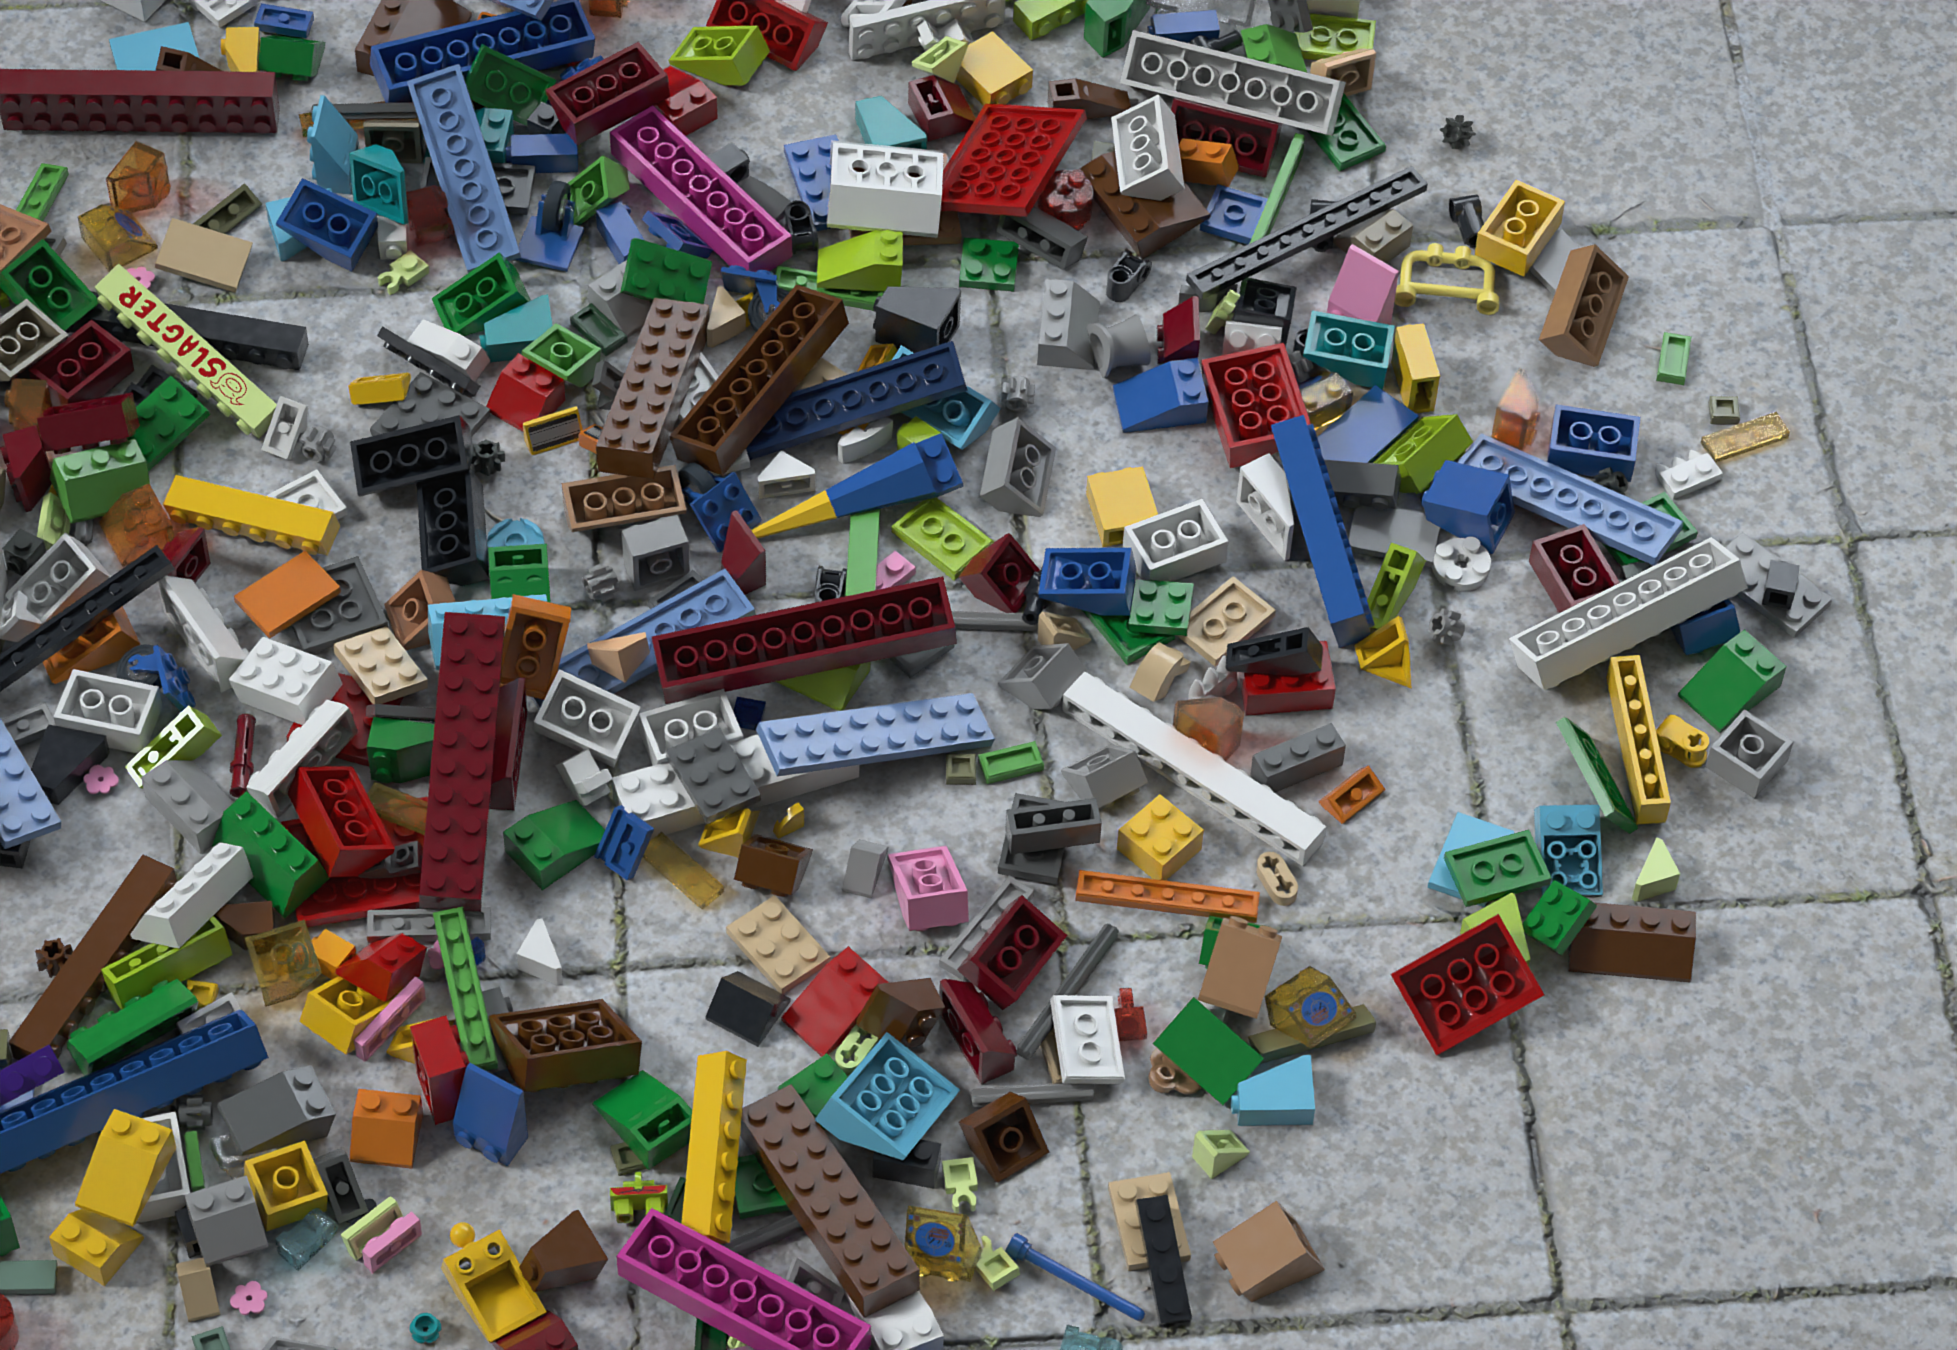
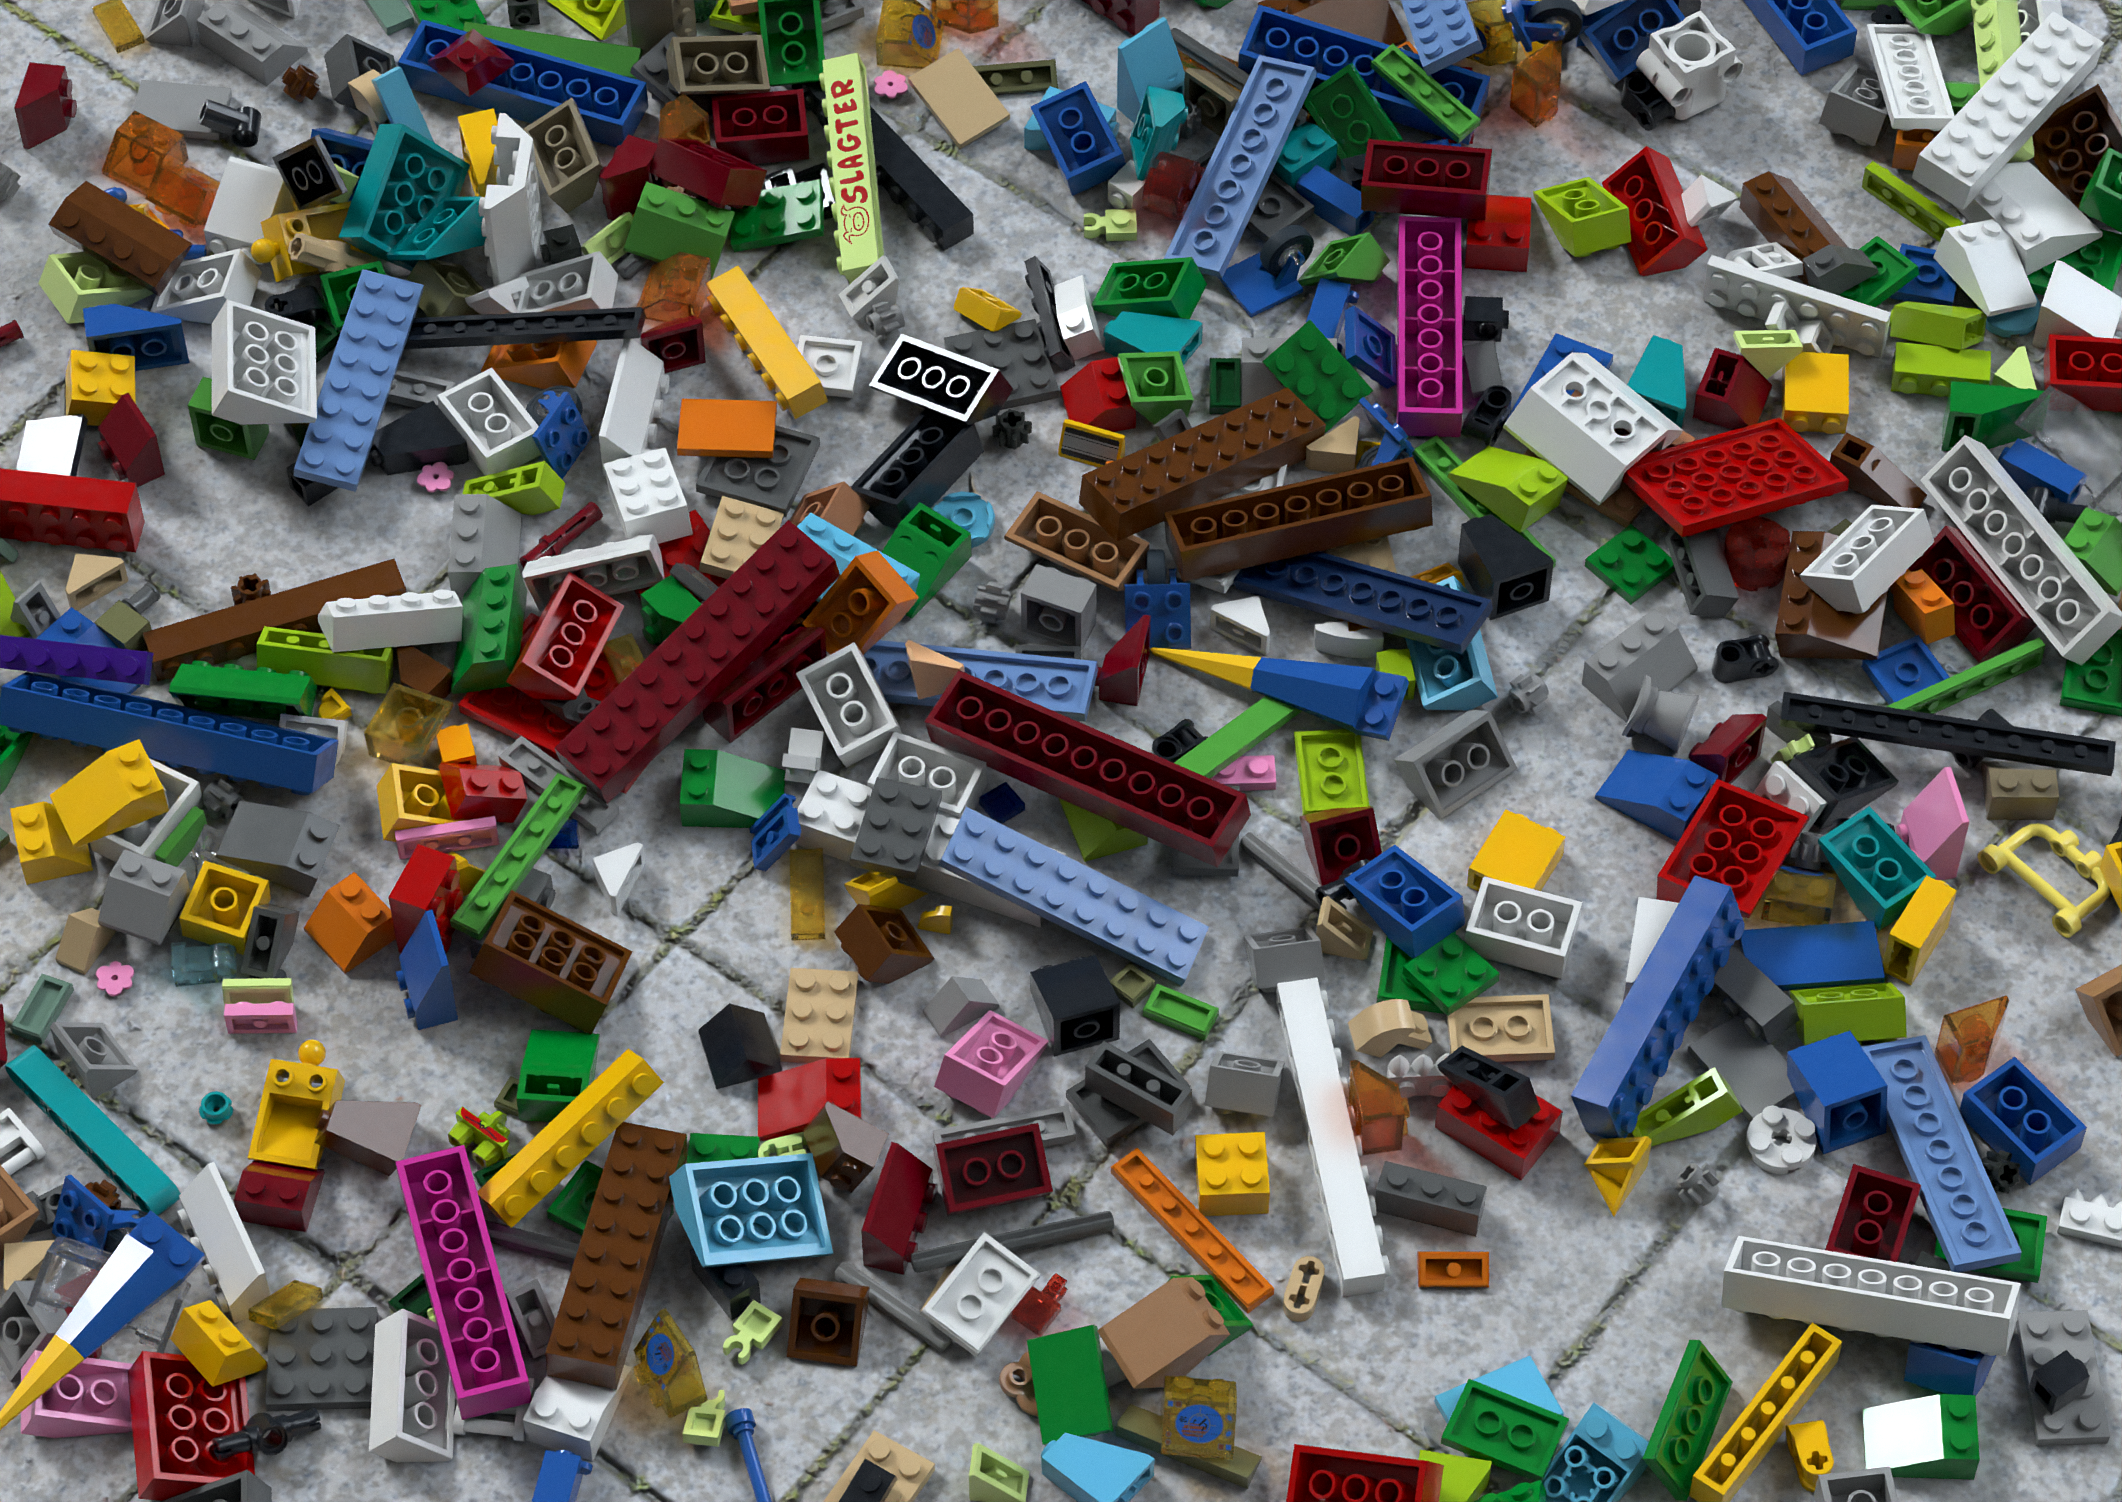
camera: 45 degrees right, 0 degrees up
(545, 35) = (1425, 93): none -> bright green tile
(944, 805) = (1076, 1004): none -> black slope

